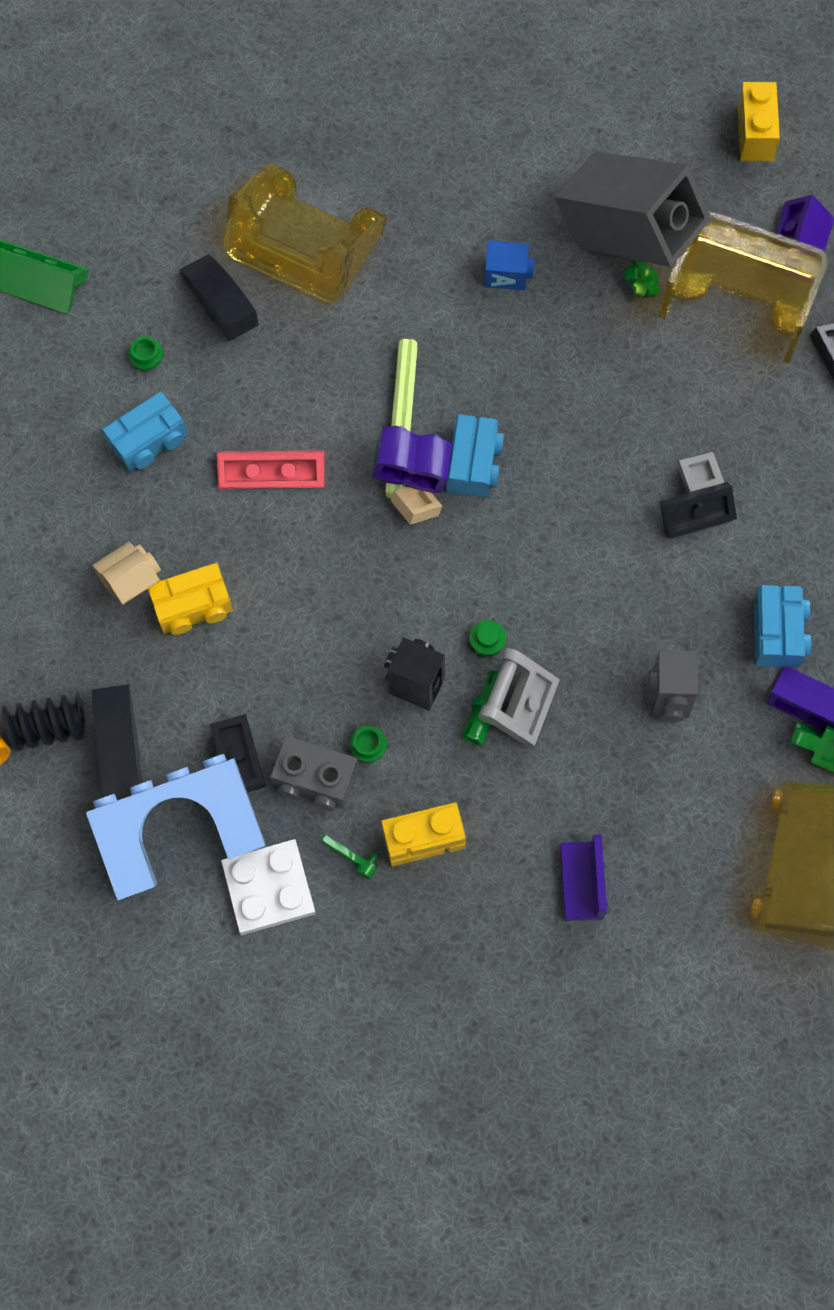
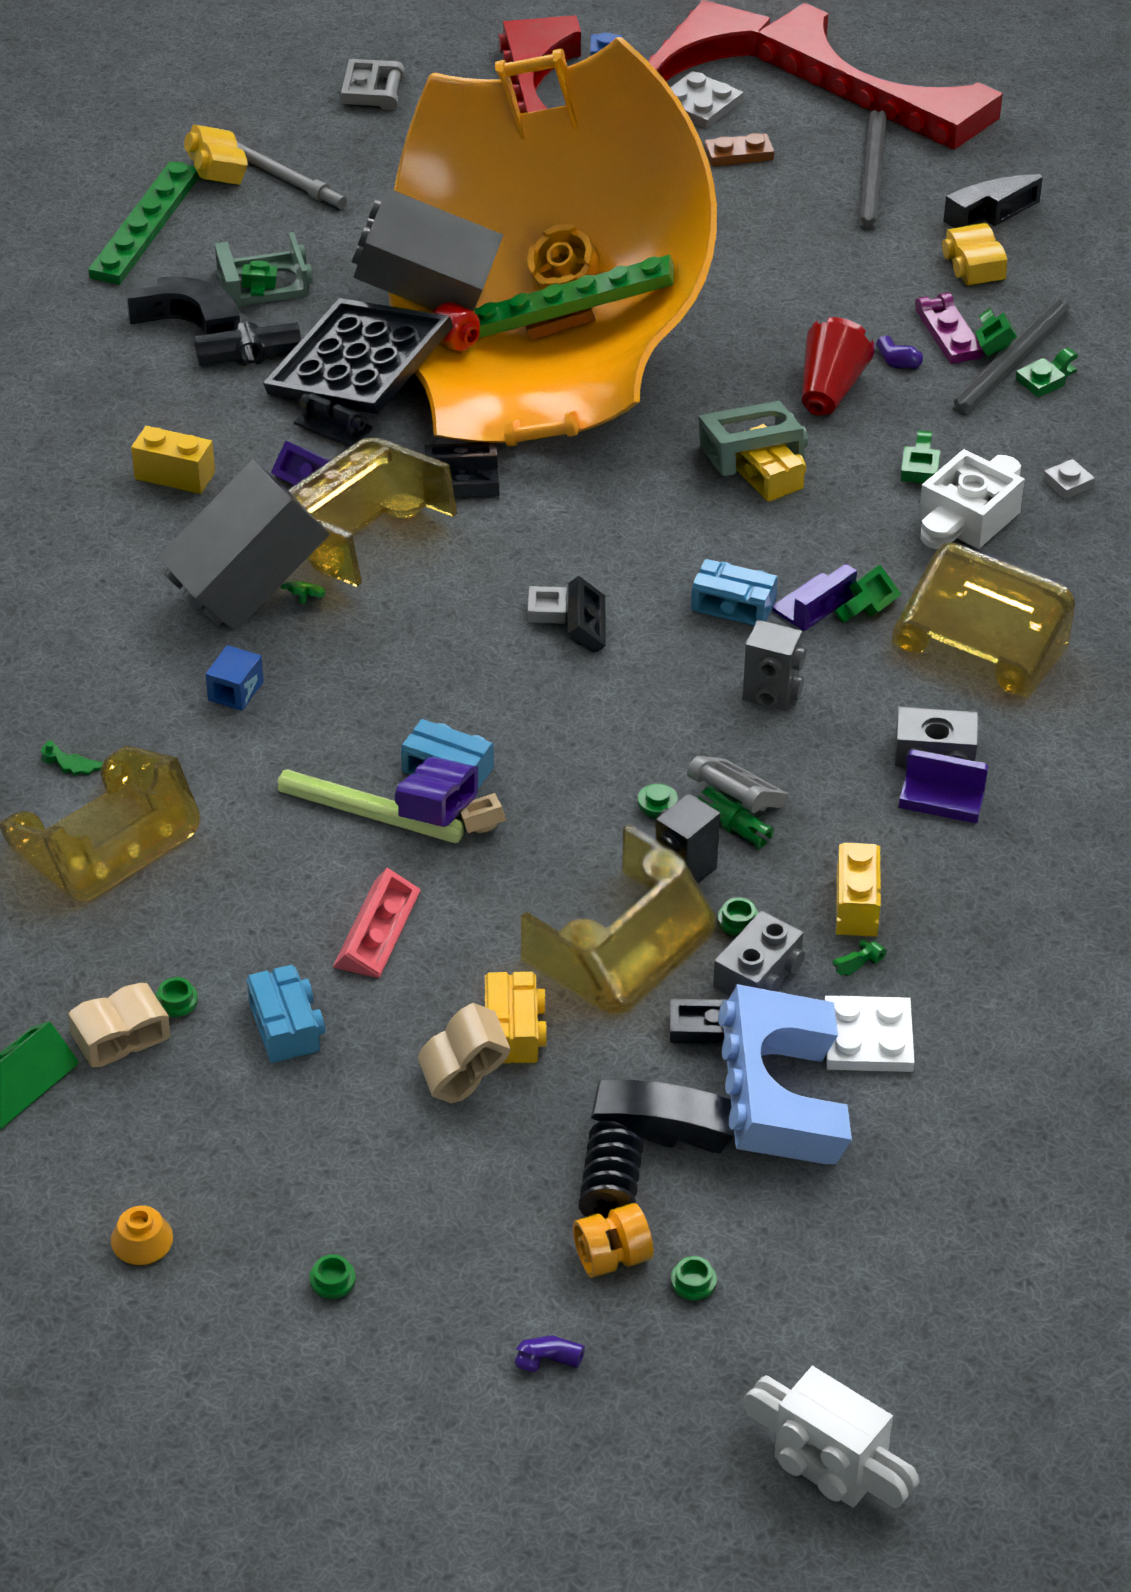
camera: 75 degrees left, 25 degrees down
(101, 323) = (118, 1024): none -> tan brick
(220, 296) = (139, 912): black slope -> none
(304, 679) = (641, 948): none -> clear yellow windscreen
(375, 190) = (67, 763): none -> green piece
(649, 834) = (935, 732): none -> brick

